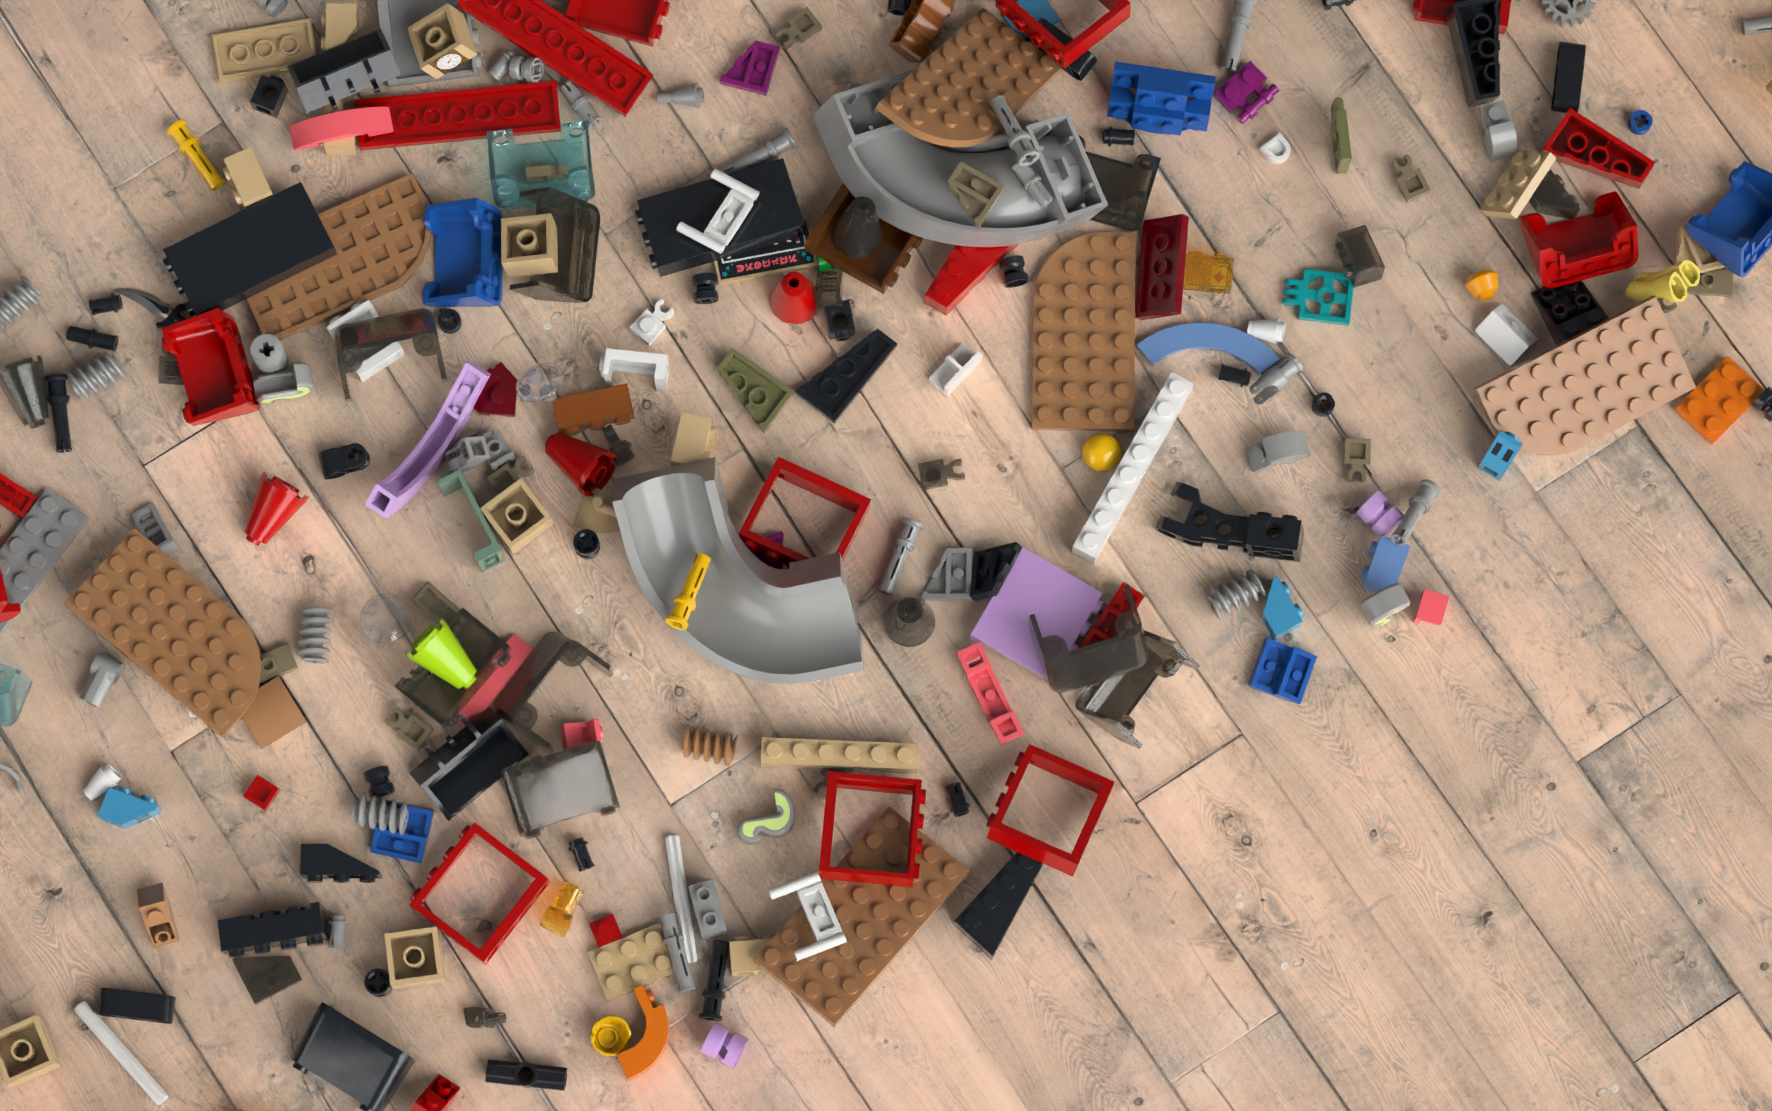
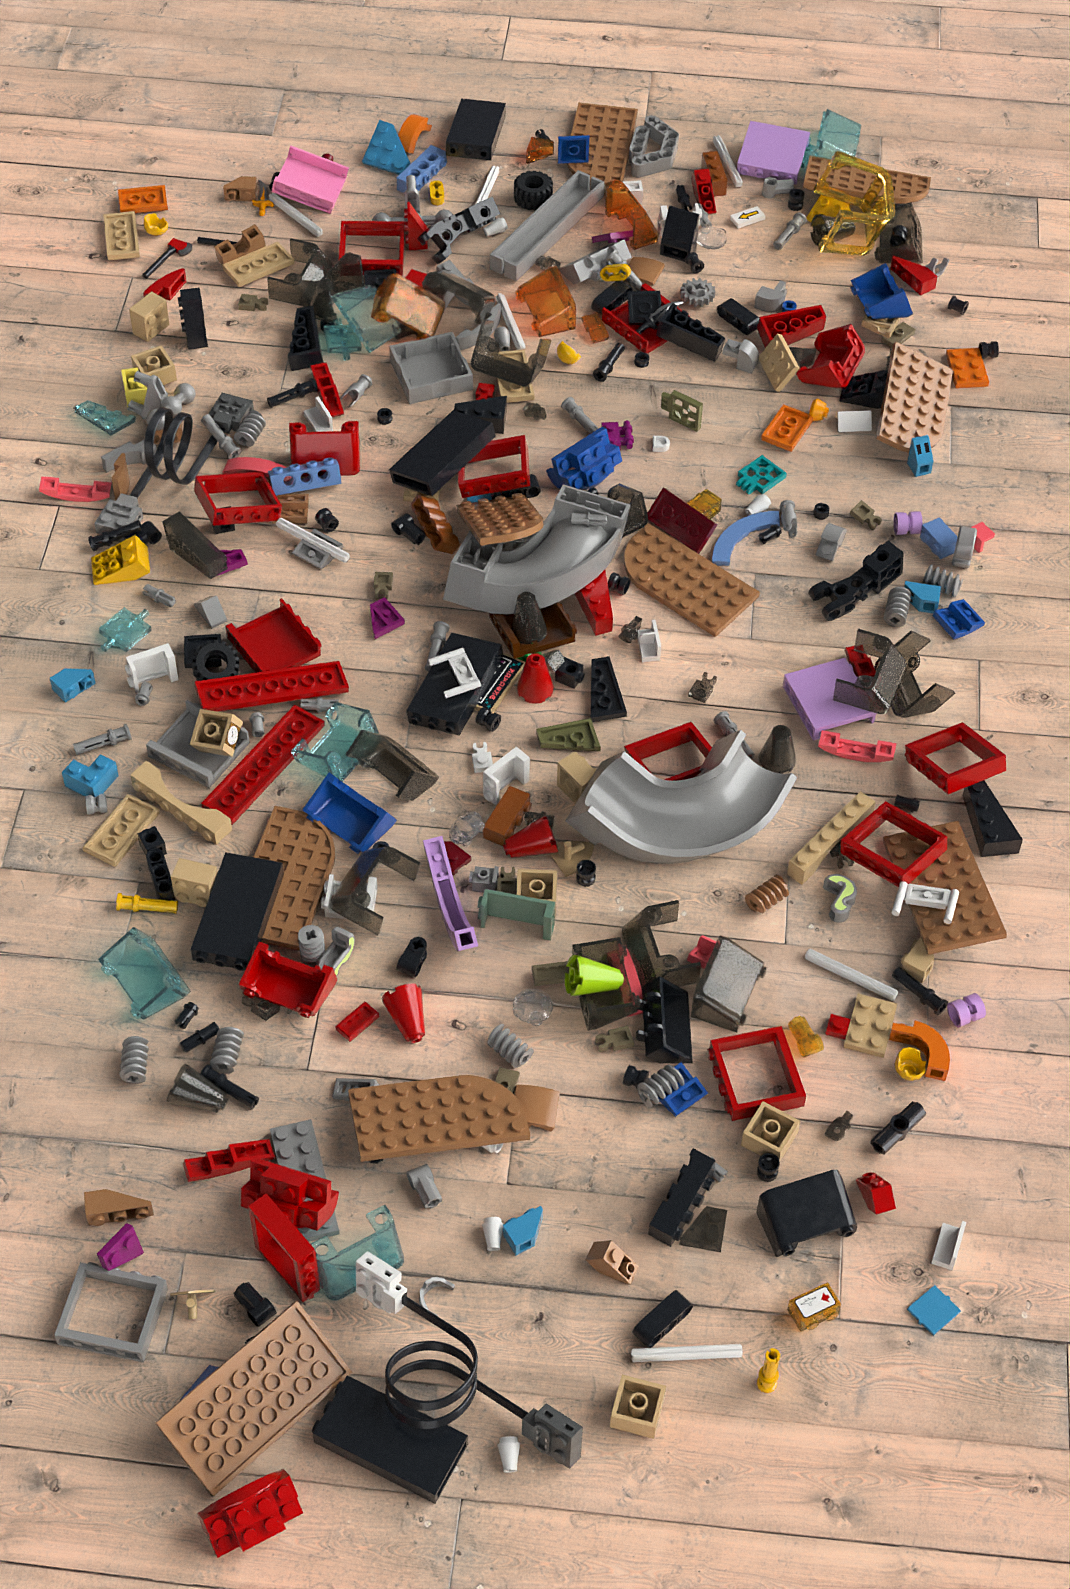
camera: 50 degrees left, 25 degrees down
(117, 229) = (144, 973): none -> clear light blue windscreen
(155, 306) = (217, 991): piece -> none
(229, 468) = (357, 1021): none -> red plate
(238, 127) = (158, 867): none -> black beam
(261, 793) = (583, 1147): red plate -> none
(328, 862) = (664, 1139): black slope -> none
(340, 125) = (208, 818): coral slope -> none
(344, 71) = (183, 787): black piece -> none
(464, 456) = (474, 889): light grey leg -> none
(526, 68) = (275, 708): light grey wheel -> none
(529, 245) = (379, 776): tan brick -> none
(543, 173) = (343, 743): dark tan plate -> none
(581, 854) = (778, 1005): black pin -> none
(677, 952) = (884, 993): light grey pin -> none
(685, 601) = (675, 833): yellow pin -> none
(688, 96) = (367, 655): light grey cone -> none
(708, 909) = (871, 961): light grey brick -> none
(952, 336) = (629, 631): none -> clear smoke piece
(952, 576) = (768, 716): light grey wing -> none
(974, 192) = (569, 543): dark tan wing -> none
(991, 569) = (784, 696): black wing -> none
(1018, 138) = (560, 505): light grey pin -> none
(1101, 452) = (759, 613): yellow hair -> none
(1132, 468) = (783, 605): white brick -> none
(1319, 615) = (946, 582): none -> light grey piece
(1359, 256) = (755, 443): clear smoke brick -> none
(1396, 31) = (641, 363): none -> black bush
(1411, 182) = (732, 404): dark tan plate -> none
(1418, 504) = (918, 503): light grey pin -> none
(1425, 270) = (787, 428): none -> orange plate
(1631, 93) = (769, 299): none -> light grey brick
(1665, 284) = (892, 332): light yellow piece -> none

